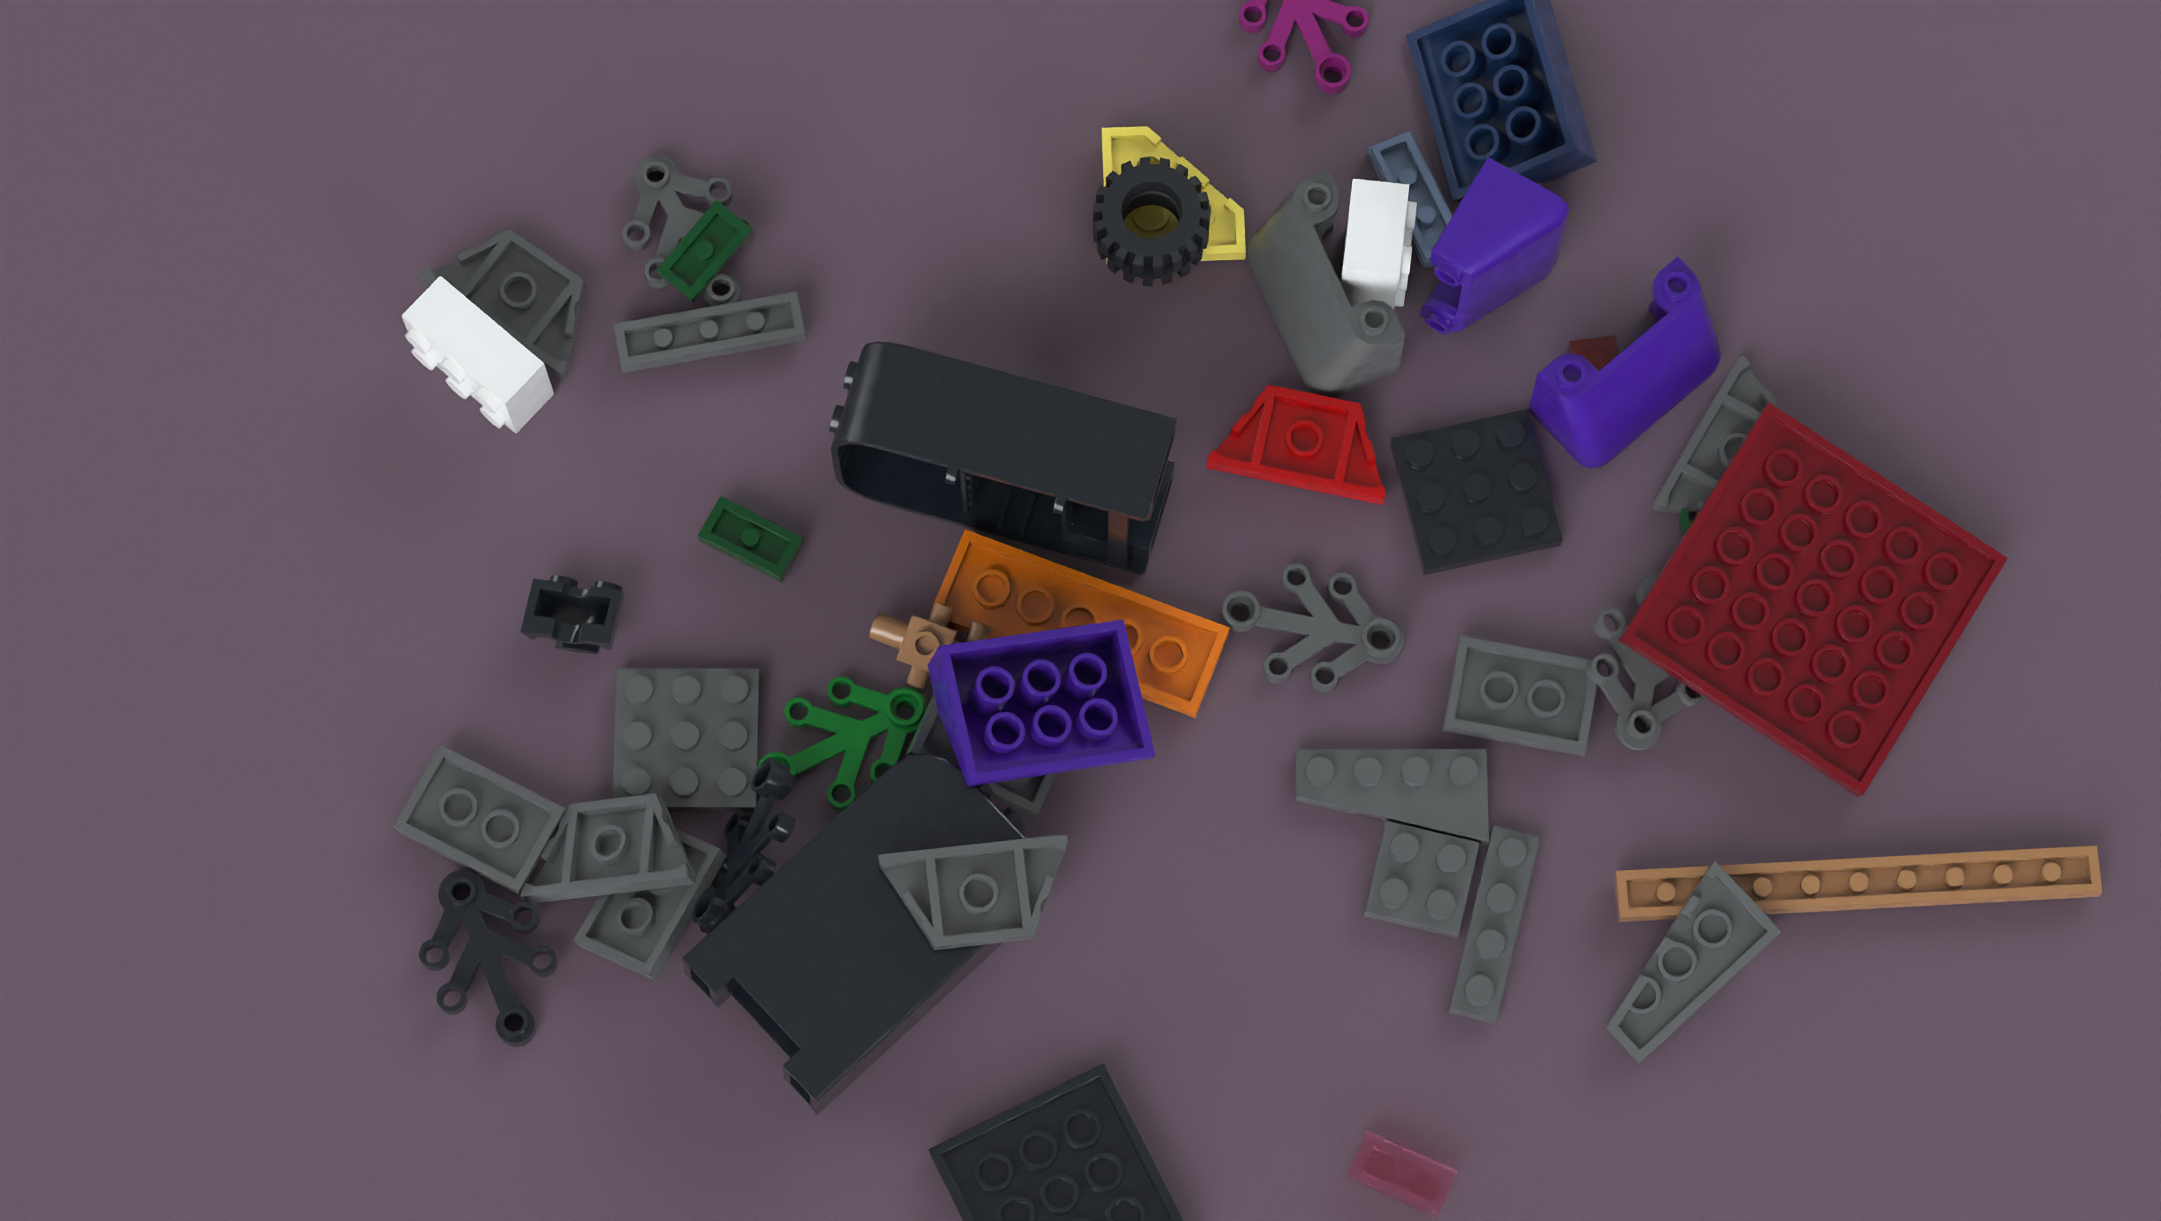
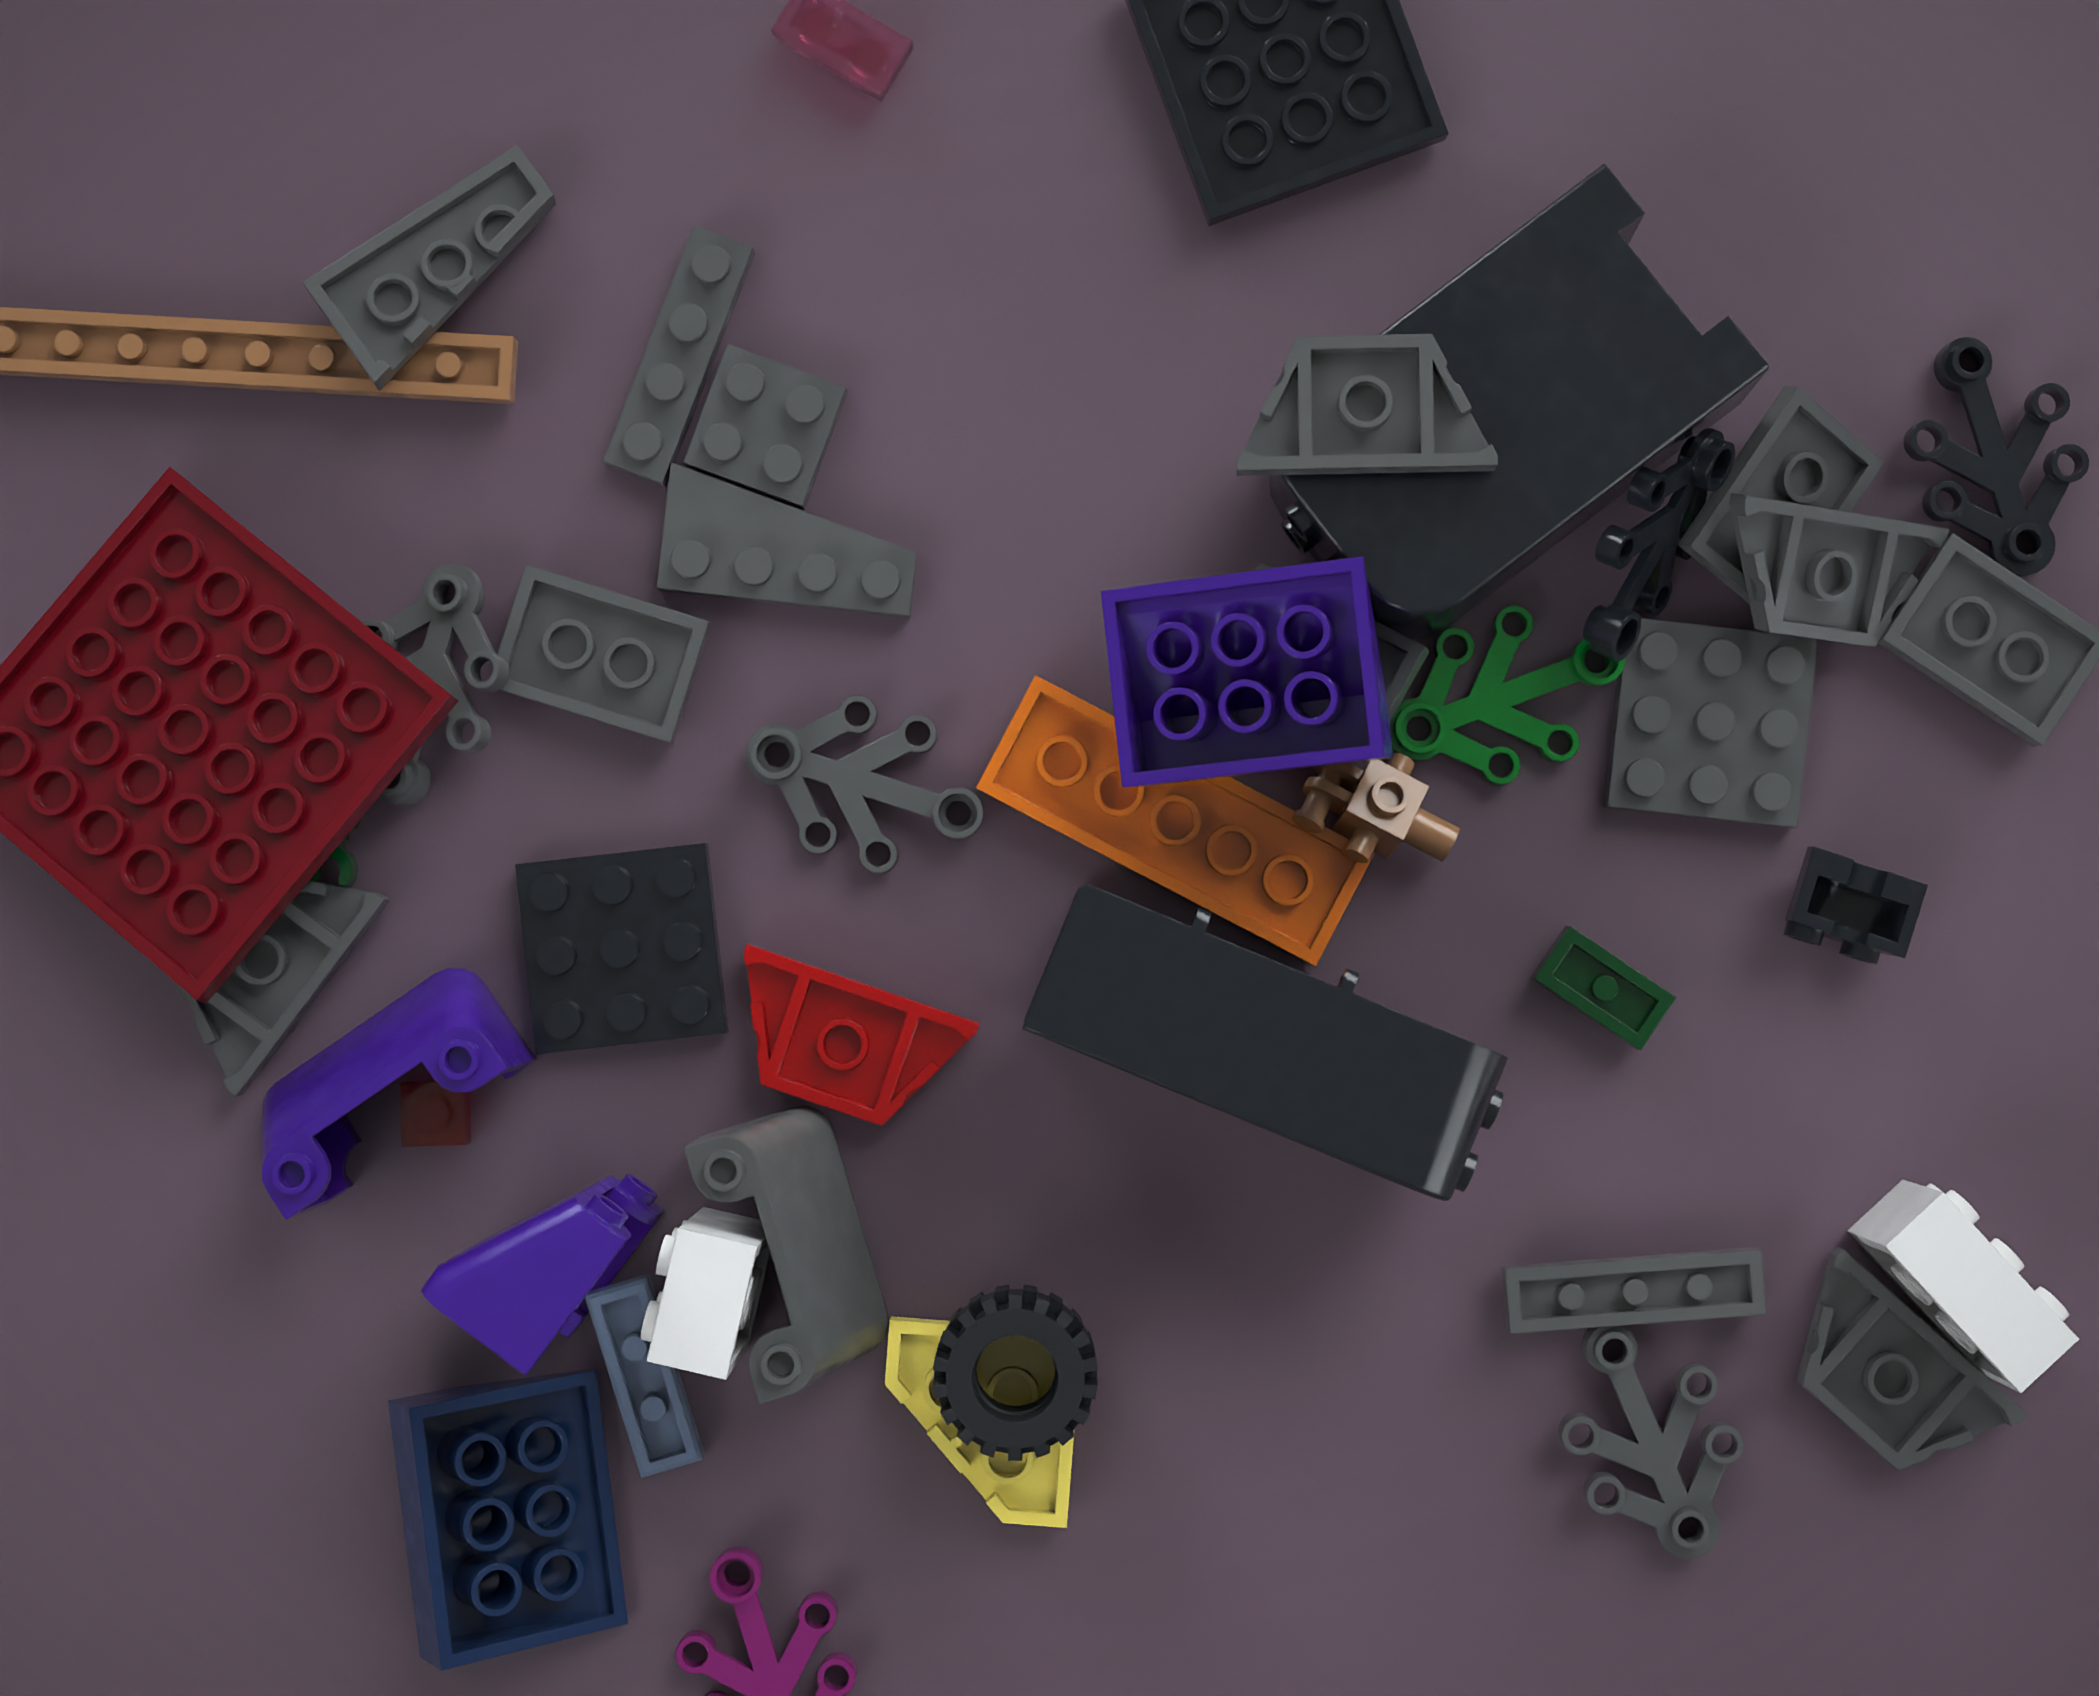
camera: 175 degrees left, 15 degrees up
(704, 251) = (1636, 1402): dark green plate -> none

